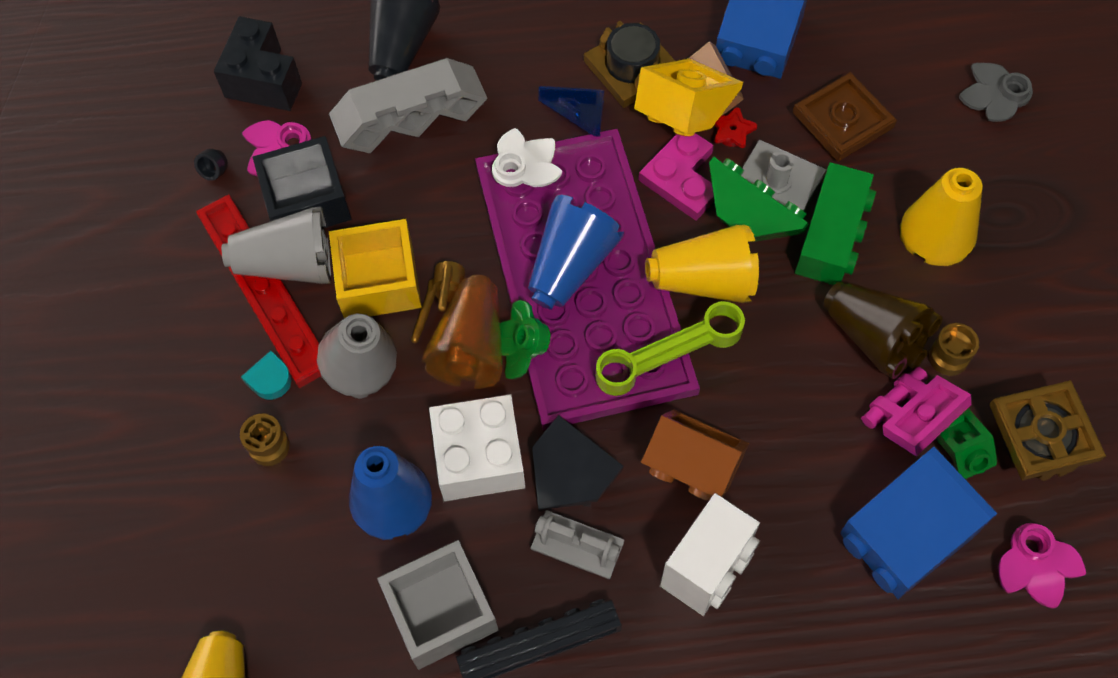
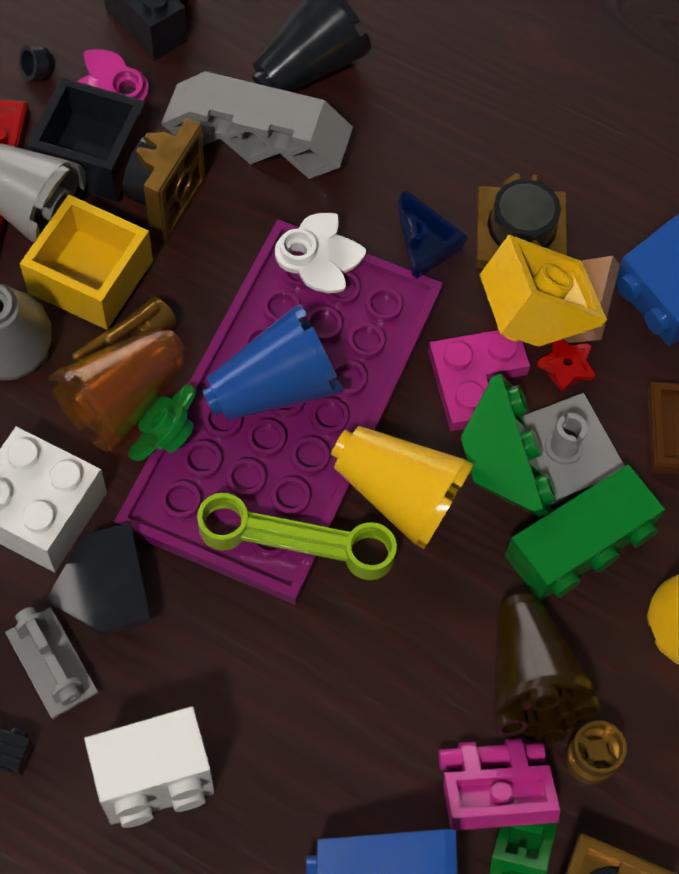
camera: 30 degrees right, 0 degrees up
(377, 176) = (166, 176): none -> pearl gold piece
(694, 454) = (223, 657): dark orange piece -> none

